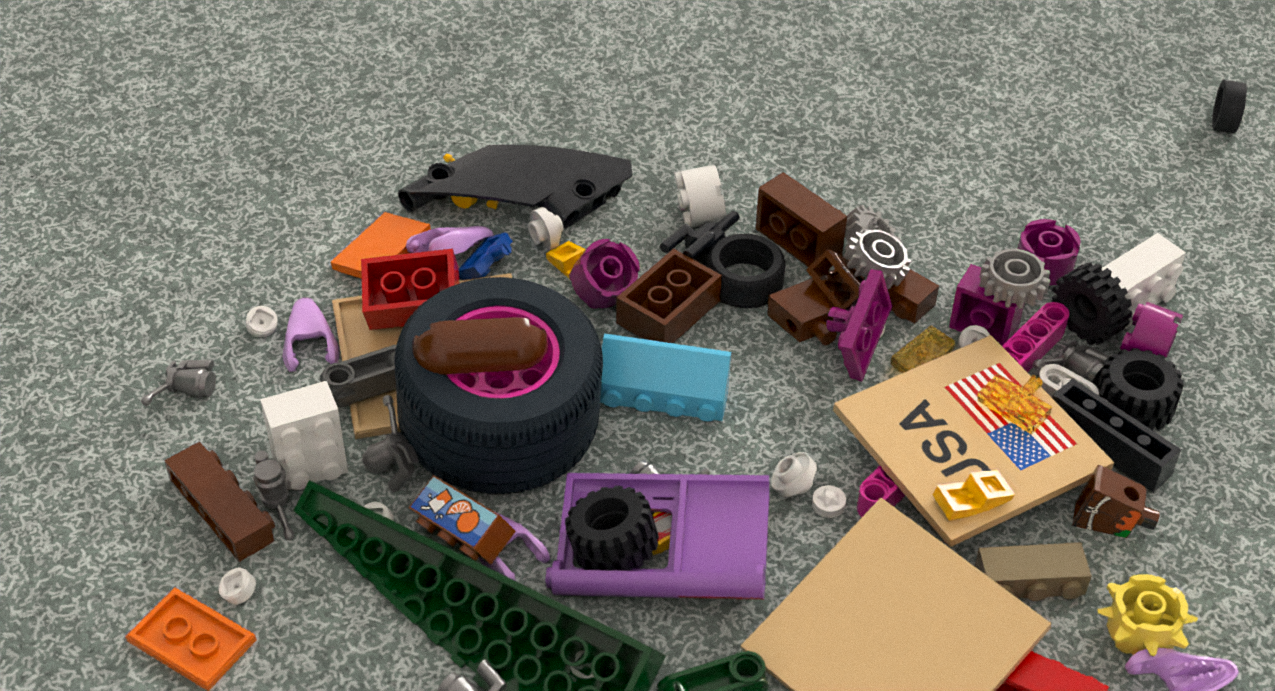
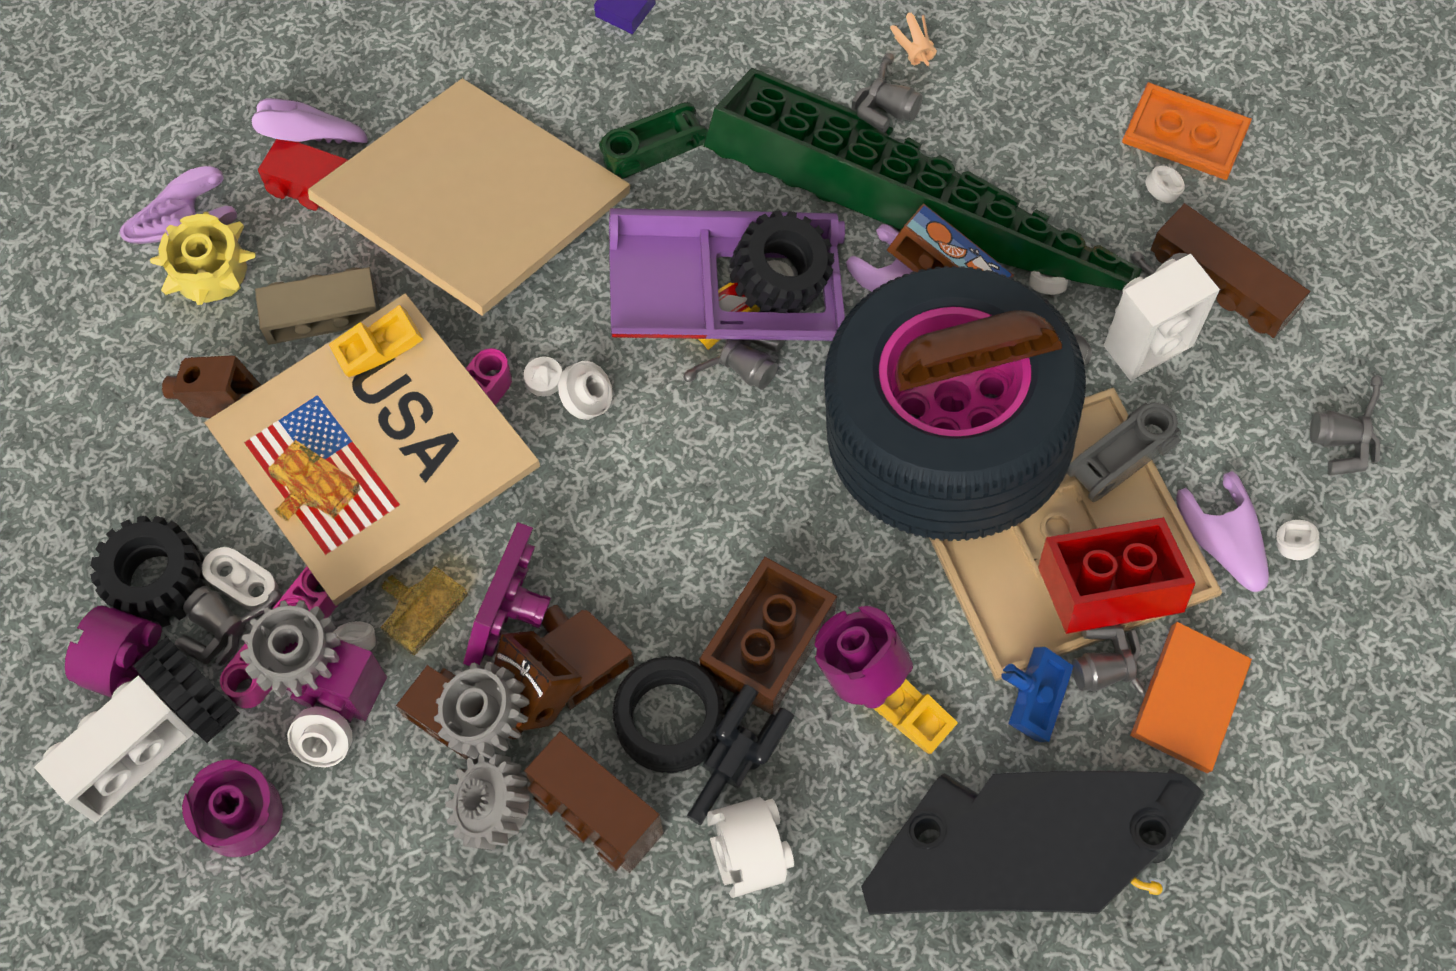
camera: 175 degrees right, 20 degrees up
(447, 238) = (1085, 715): lavender animal -> none
(545, 228) = (967, 751): white plate -> none
(665, 377) = (755, 496): medium azure slope -> none
(1125, 440) = (197, 491): black brick -> none

